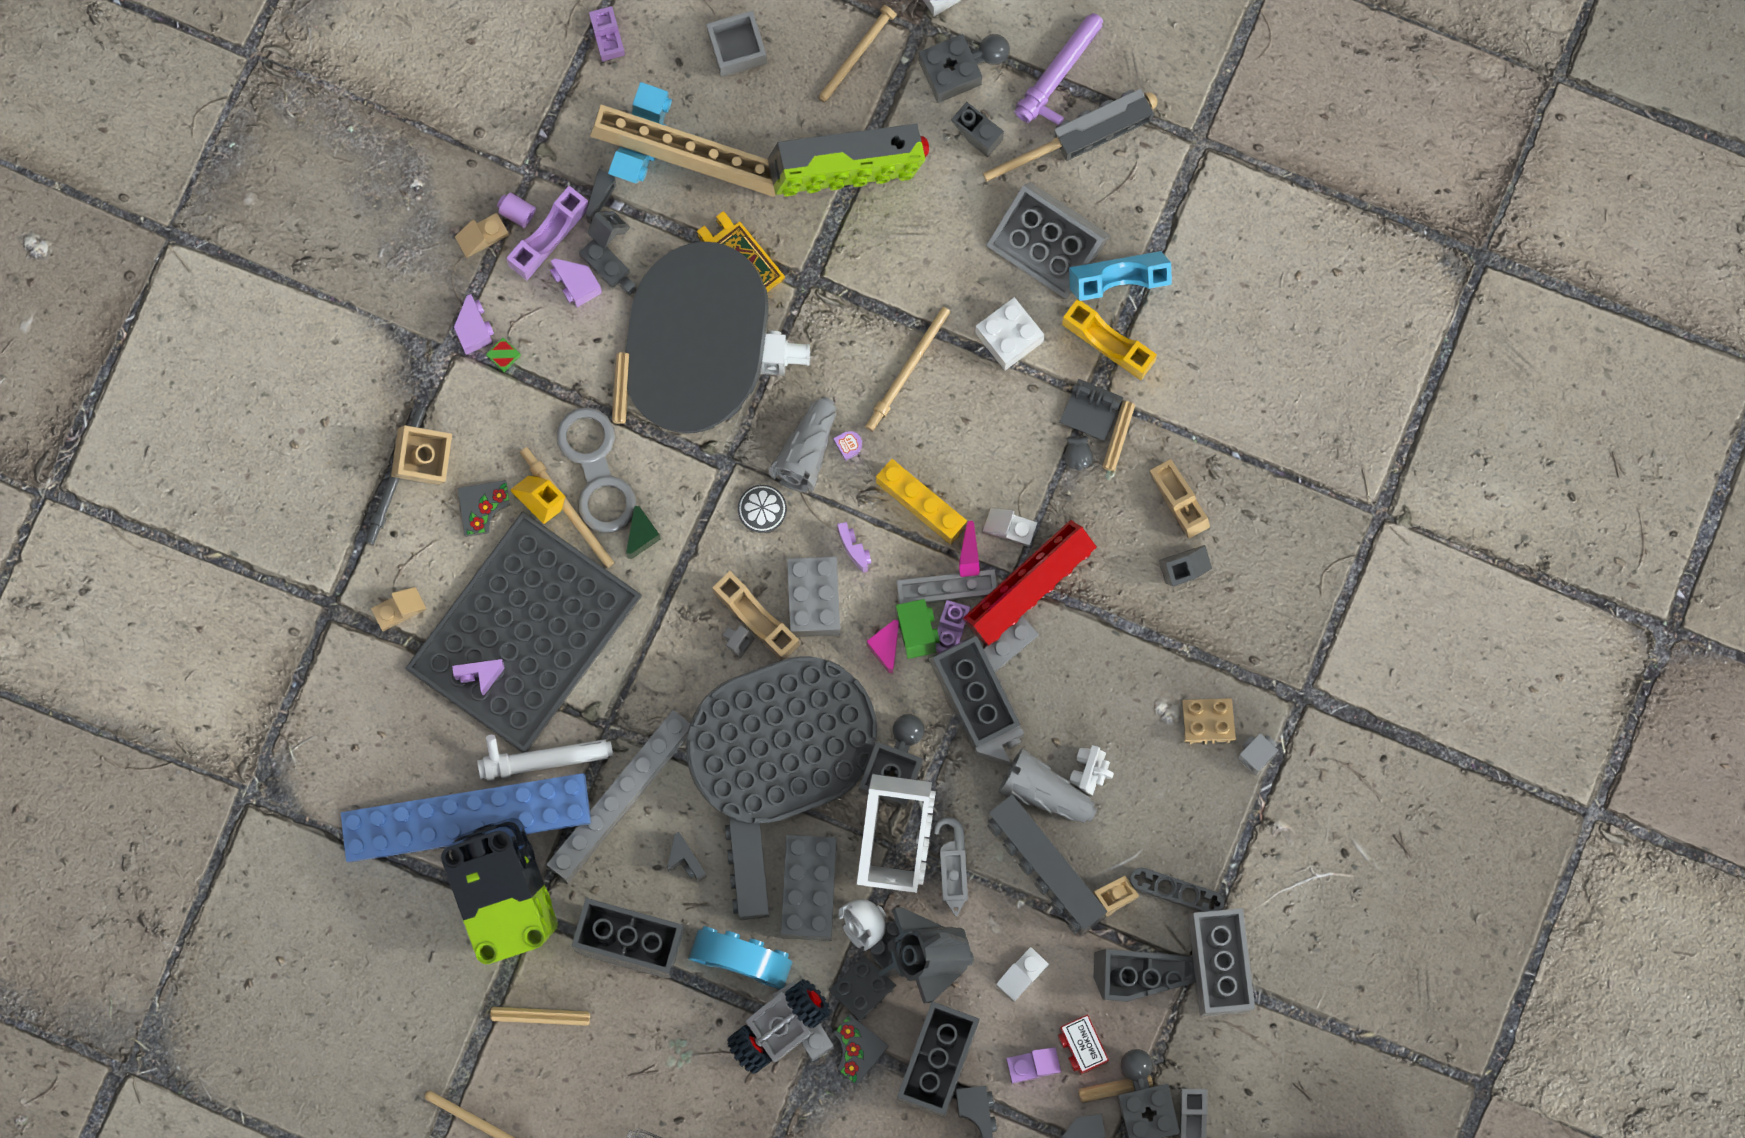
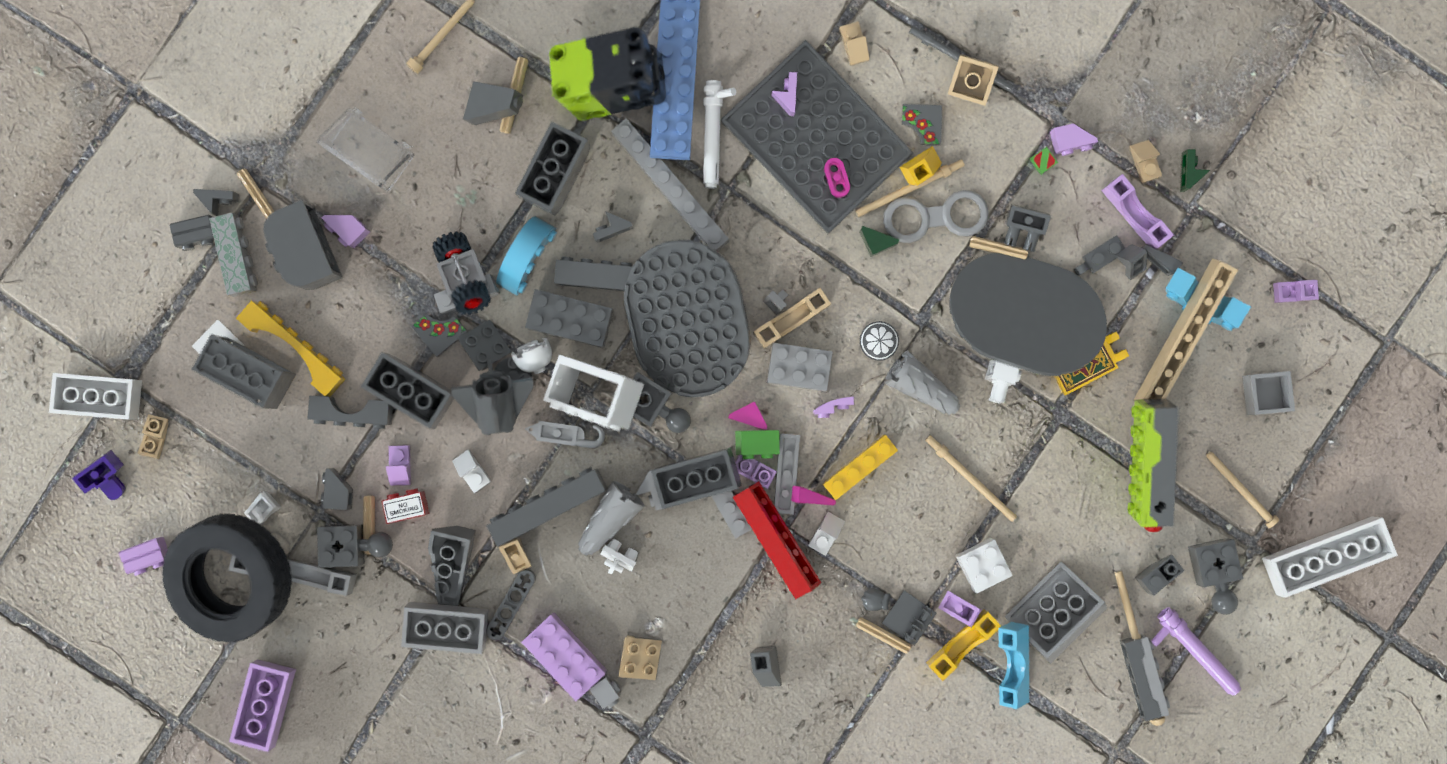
camera: 100 degrees right, 10 degrees up
(490, 181) = (1189, 174): none -> dark green slope
(516, 209) = (1161, 191): lavender brick -> none
(556, 1037) = (491, 103): none -> dark grey slope
(571, 594) = (837, 178): none -> dark pink plate
(577, 279) = (1093, 229): lavender slope -> none
(580, 360) = (1024, 218): none -> dark grey brick
(849, 444) = (918, 419): tile -> none
(1067, 351) = (959, 609): none -> lavender slope
(1180, 498) = (822, 673): tan slope -> none
(1225, 811) = (564, 656): none -> lavender brick

